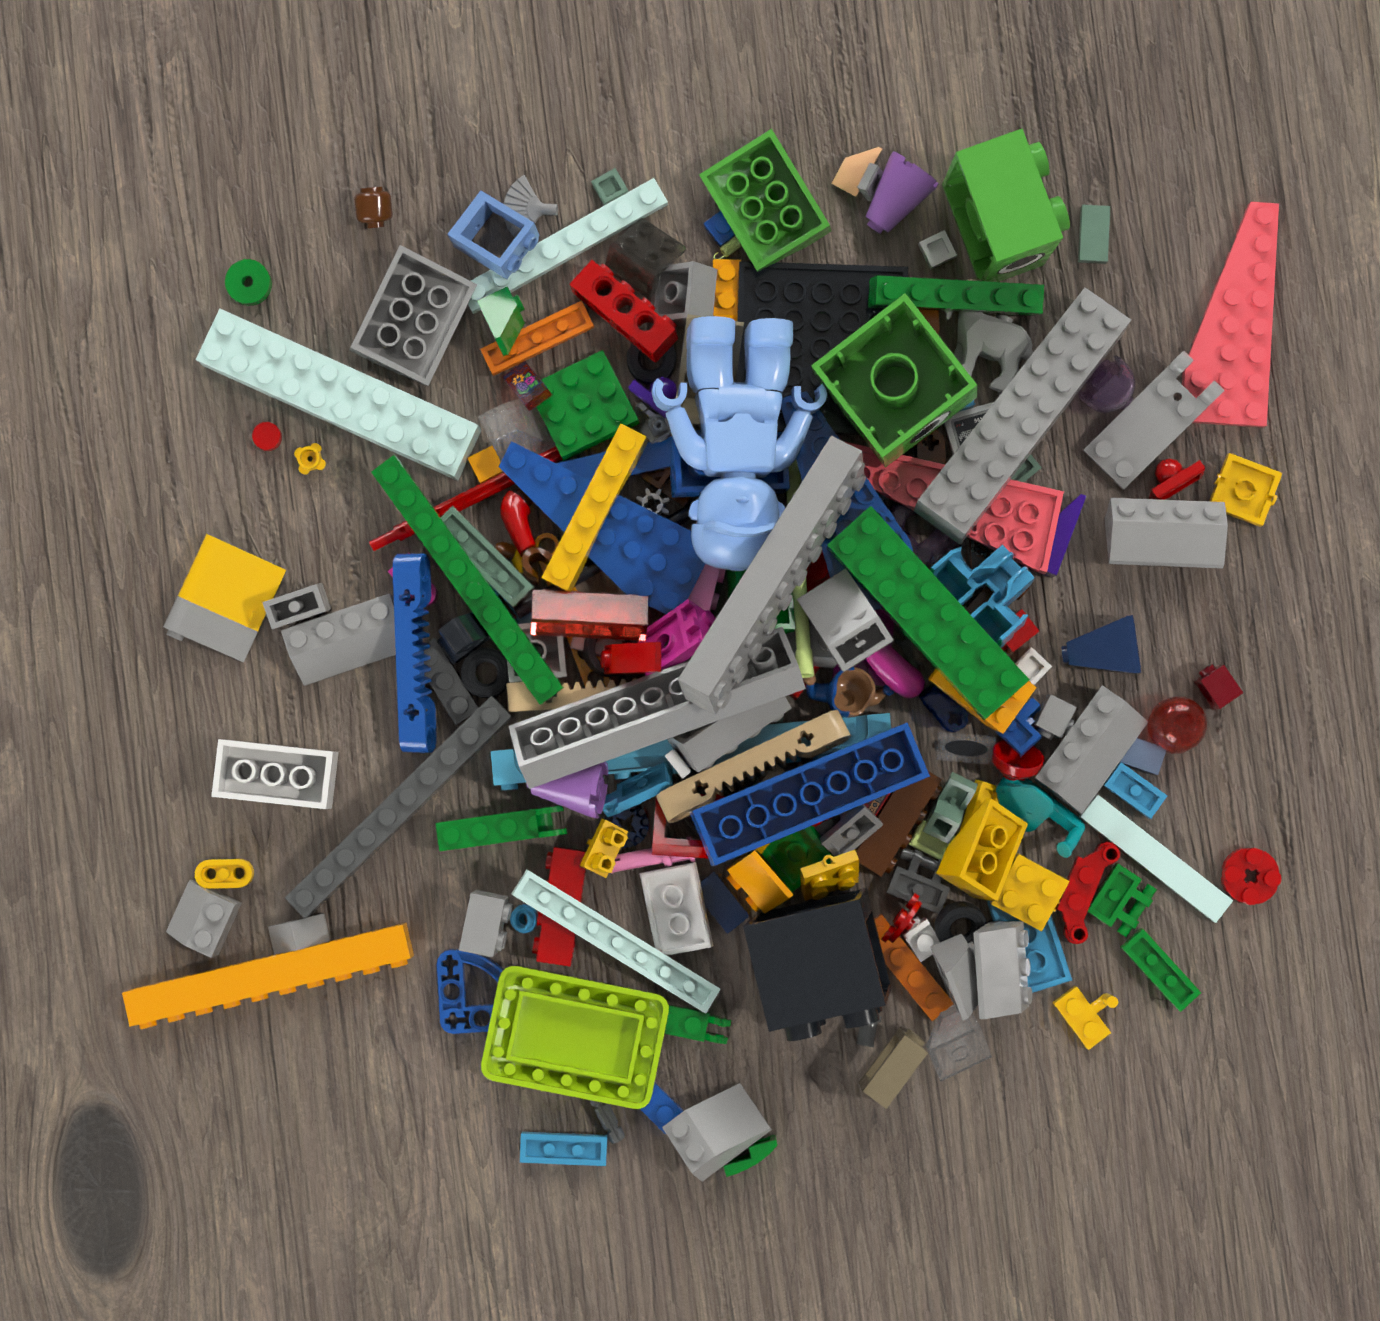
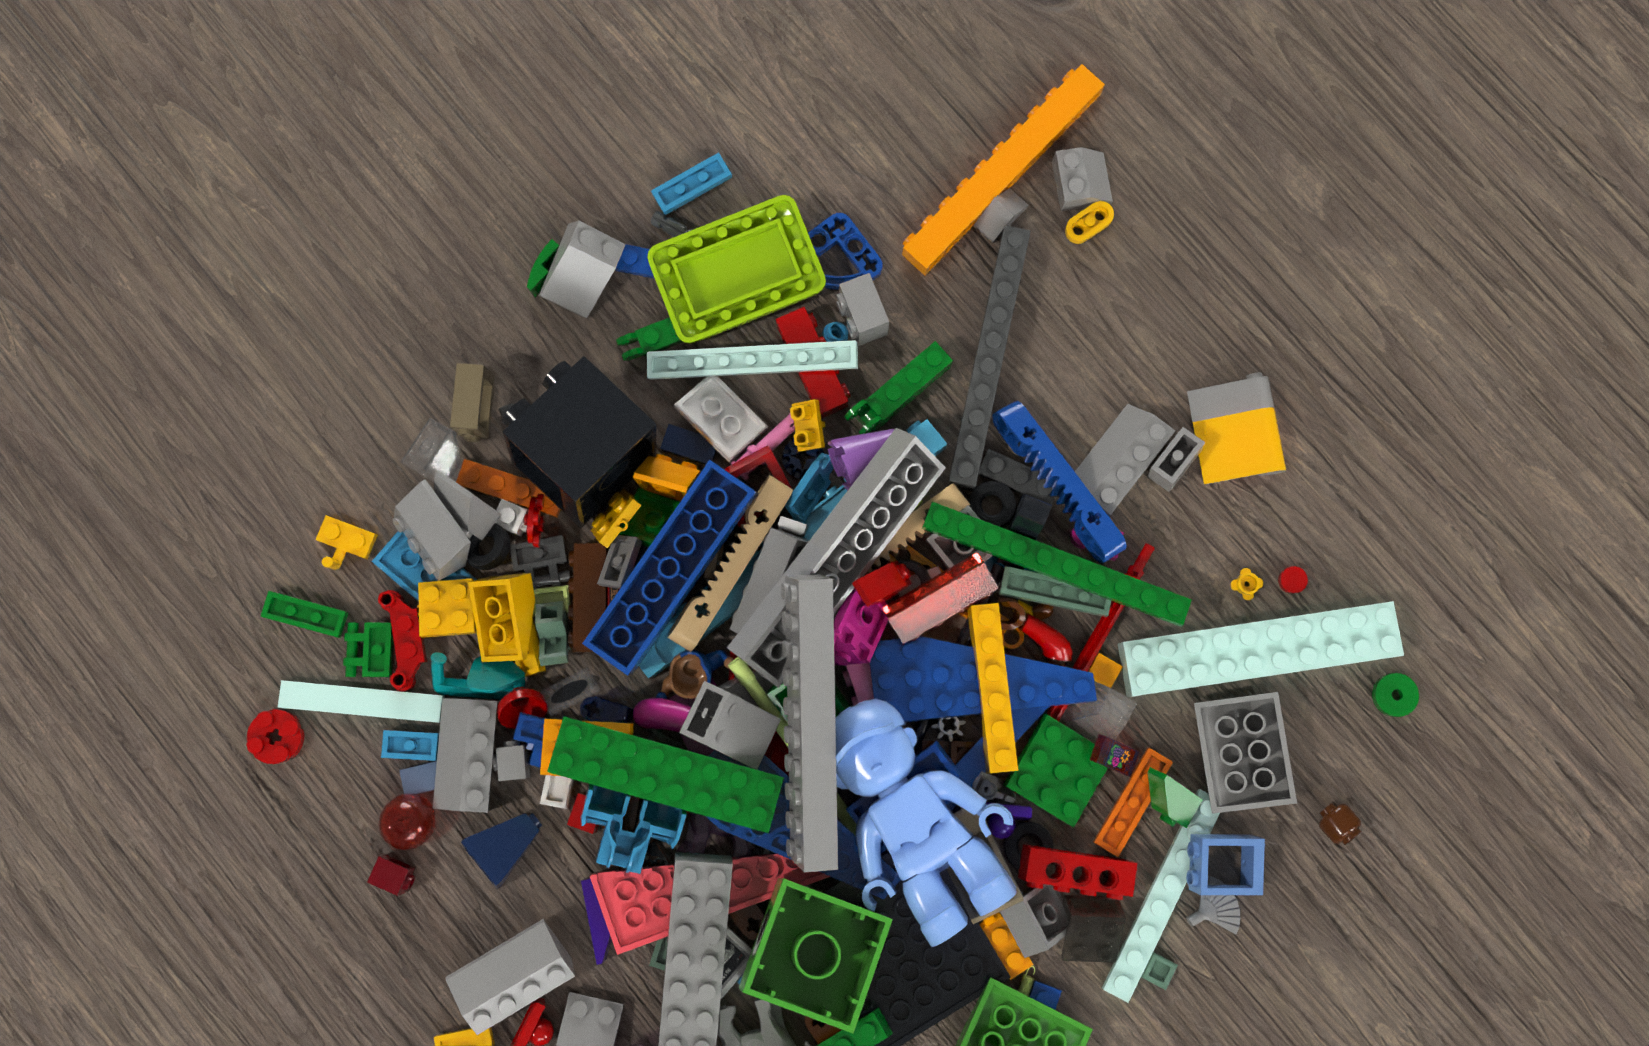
camera: 150 degrees right, 5 degrees down
(275, 774) = (1102, 319): white brick -> none

